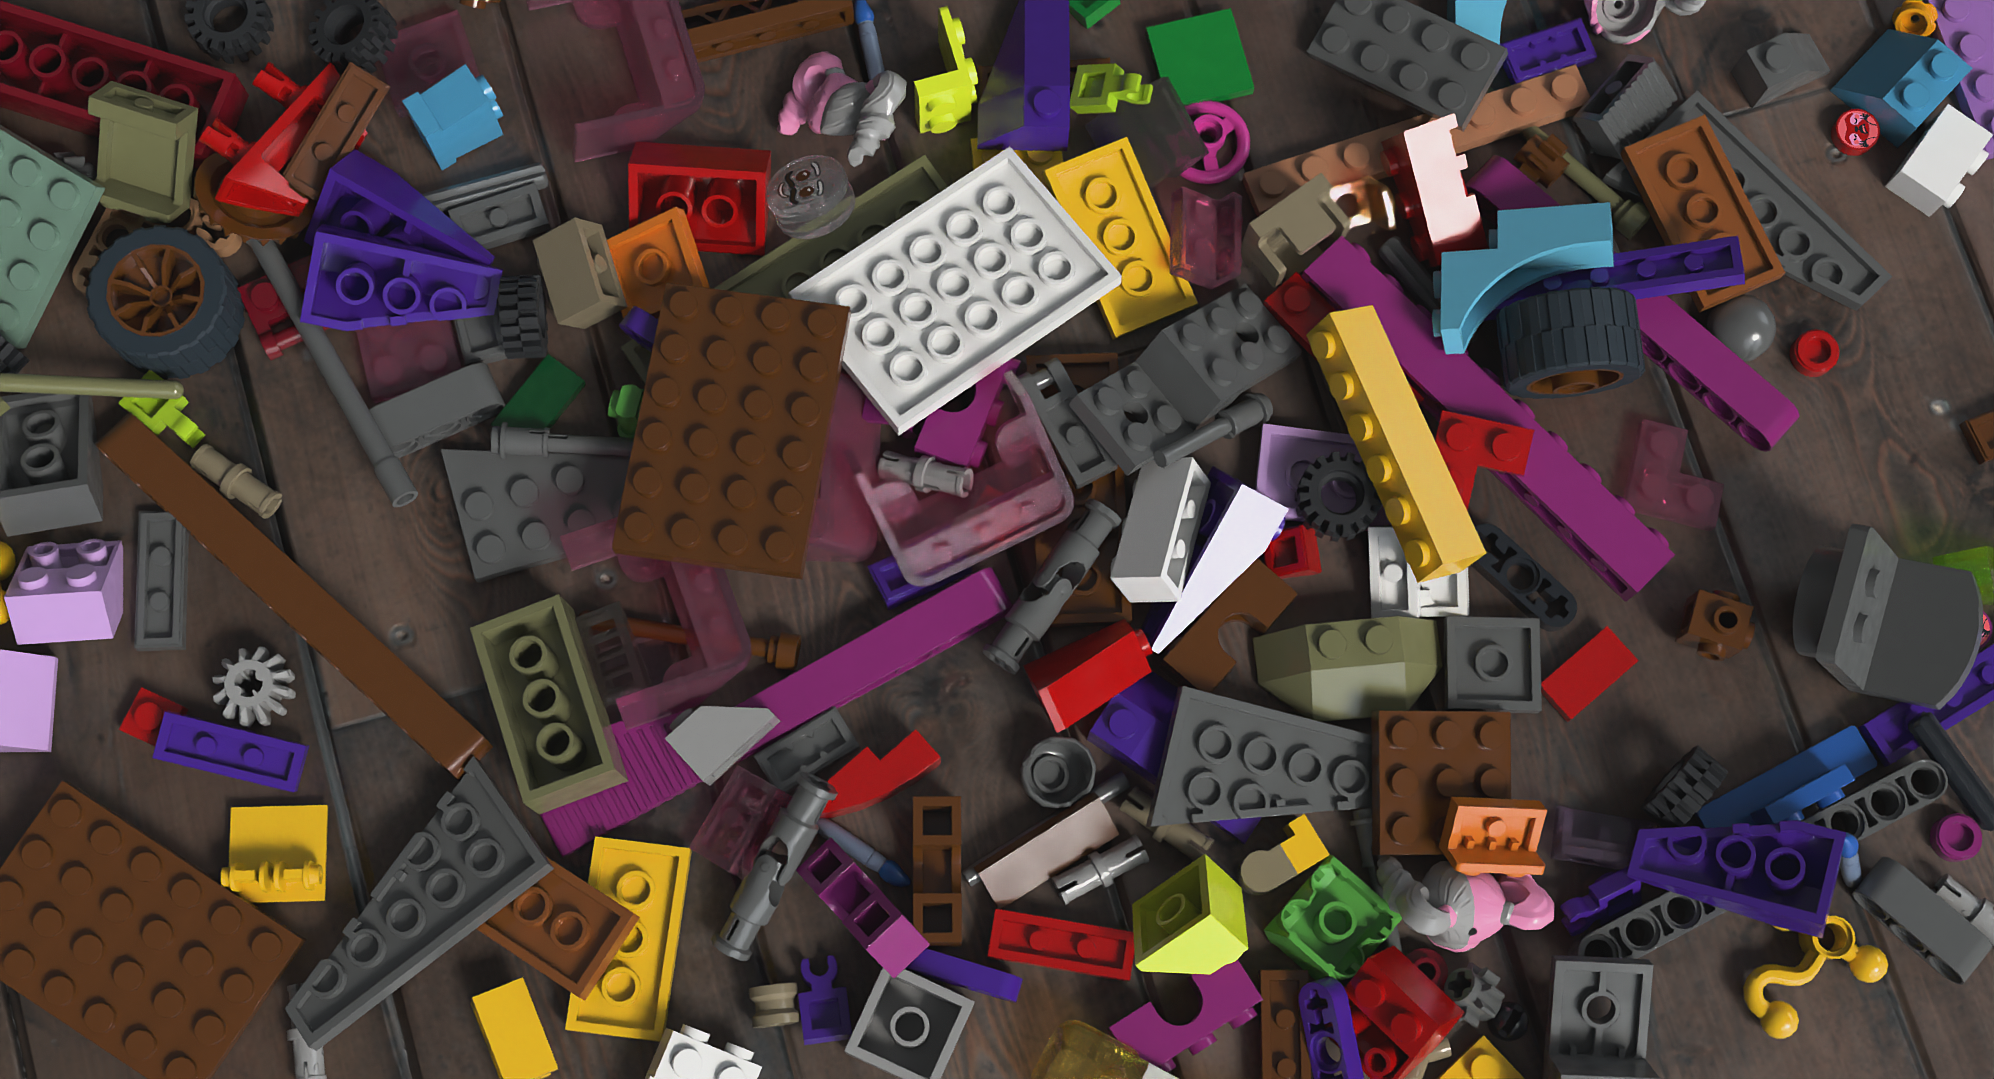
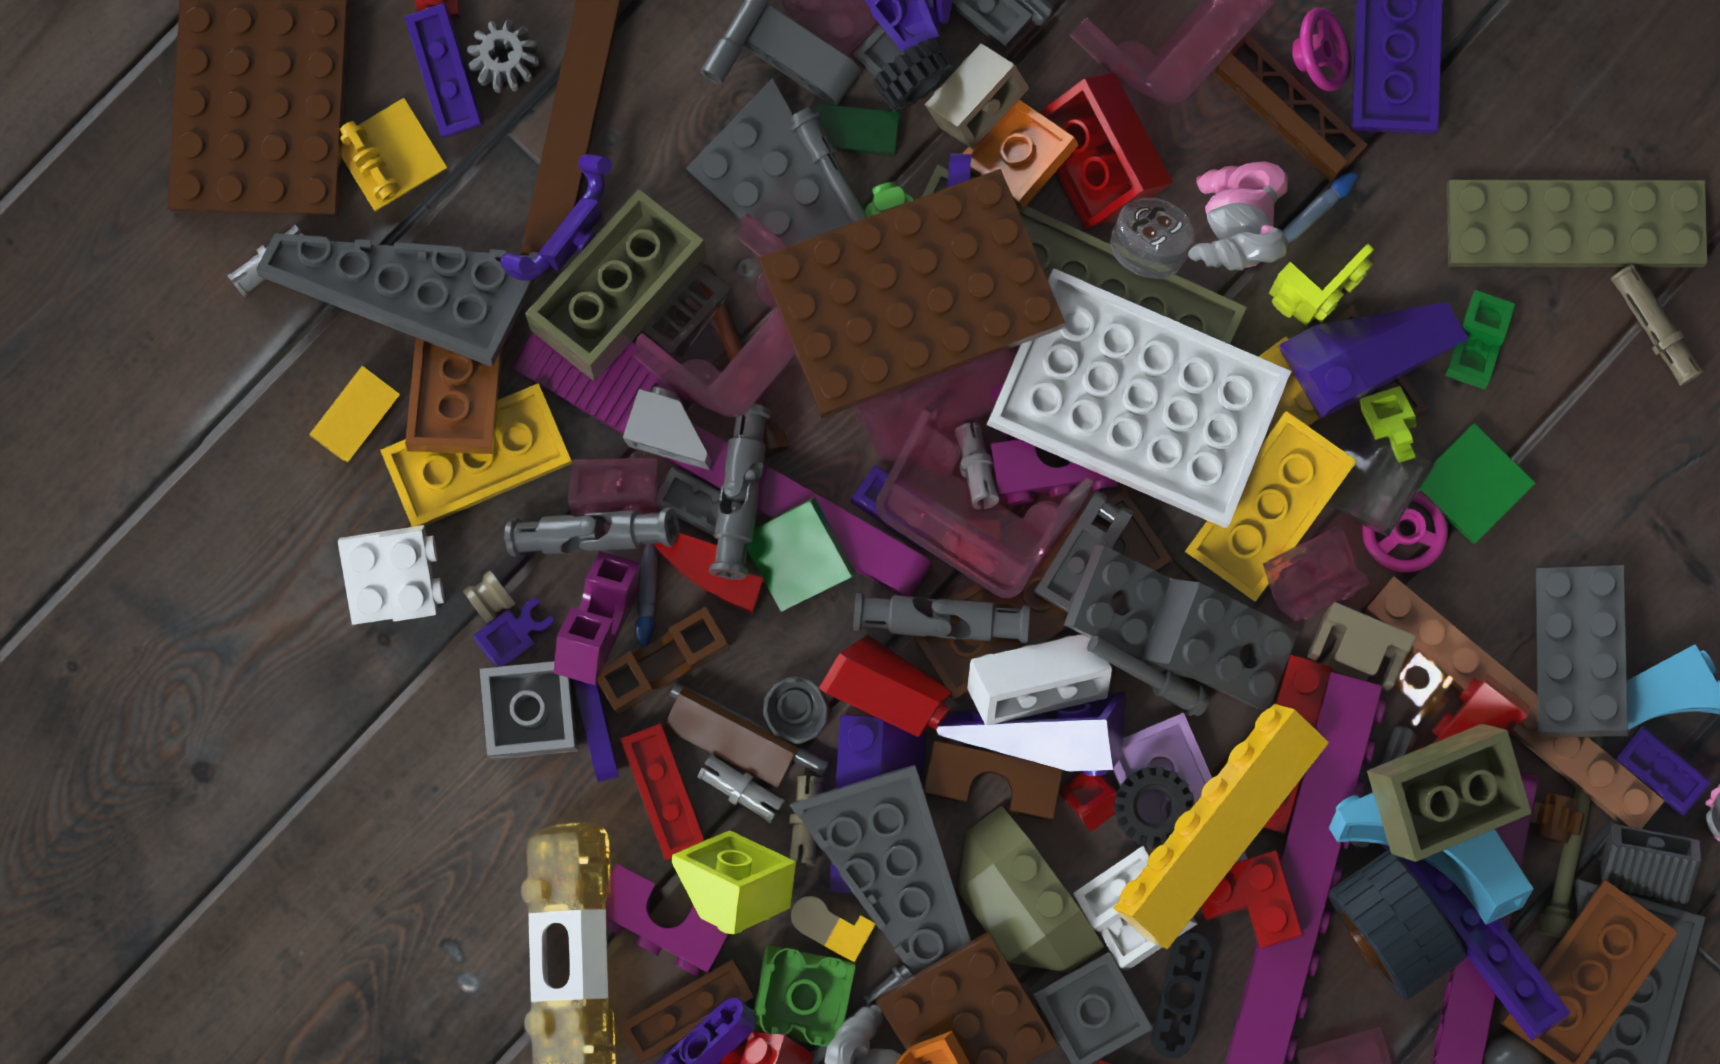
camera: 70 degrees right, 5 degrees up
(469, 714) = (574, 230): none -> dark purple piece
(801, 685) = (741, 485): none -> dark grey piece
(911, 684) = (799, 554): none -> tile
(1487, 218) = (1449, 792): none -> olive brick

